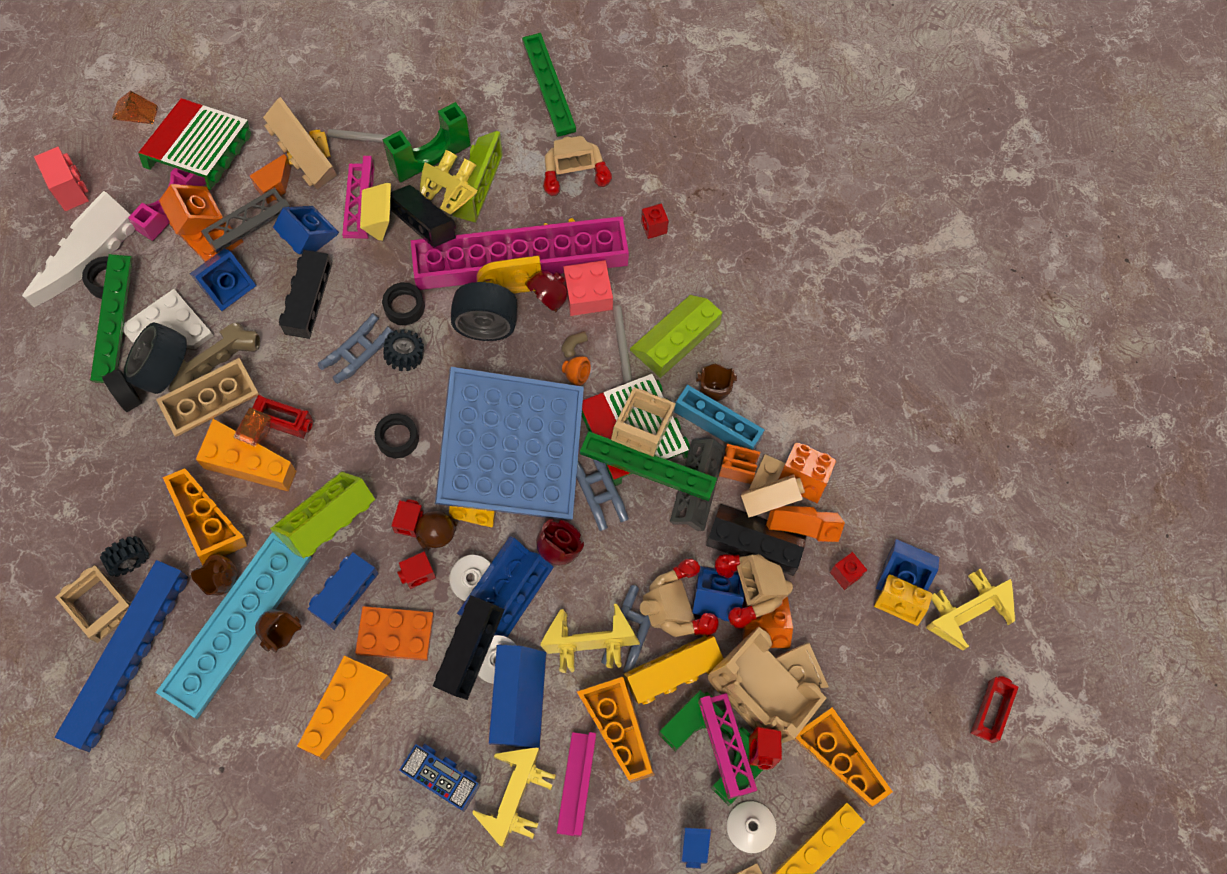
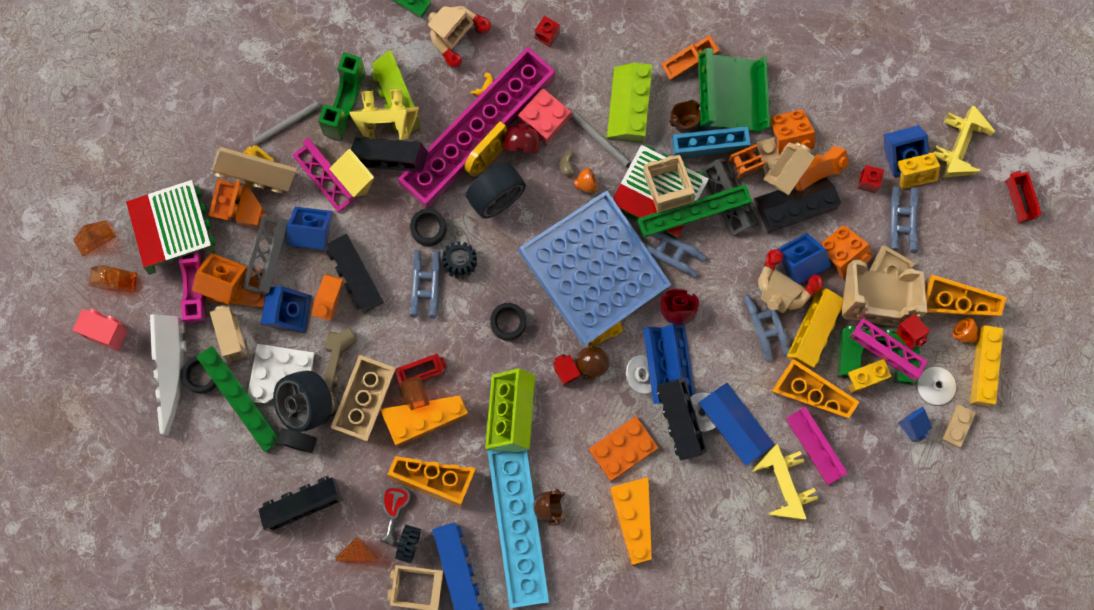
camera: 40 degrees left, 10 degrees up
(72, 447) = (300, 504): none -> black slope
(79, 527) = (356, 552): none -> clear orange slope
(114, 150) = (112, 278): none -> clear orange slope
(154, 260) = (228, 333): none -> tan window
(154, 511) = (393, 501): none -> flat silver piece
(216, 575) = (478, 506): reddish brown cap -> none
(259, 155) = (224, 200): none -> orange bracket
(262, 294) = (327, 297): none -> orange slope
(342, 590) = (567, 449): blue brick -> none
(416, 570) = (602, 398): red brick -> none
(440, 776) = (731, 509): brick -> none
(558, 641) = (739, 365): light yellow hose -> none
(686, 757) = (868, 375): none -> yellow bracket
(761, 582) = (828, 230): tan torso -> none
(768, 335) = (688, 57): none -> orange slope
(779, 392) = (733, 92): none -> green panel
(825, 795) = (965, 330): none -> orange brick
(866, 636) = (911, 211): none -> sand blue piece

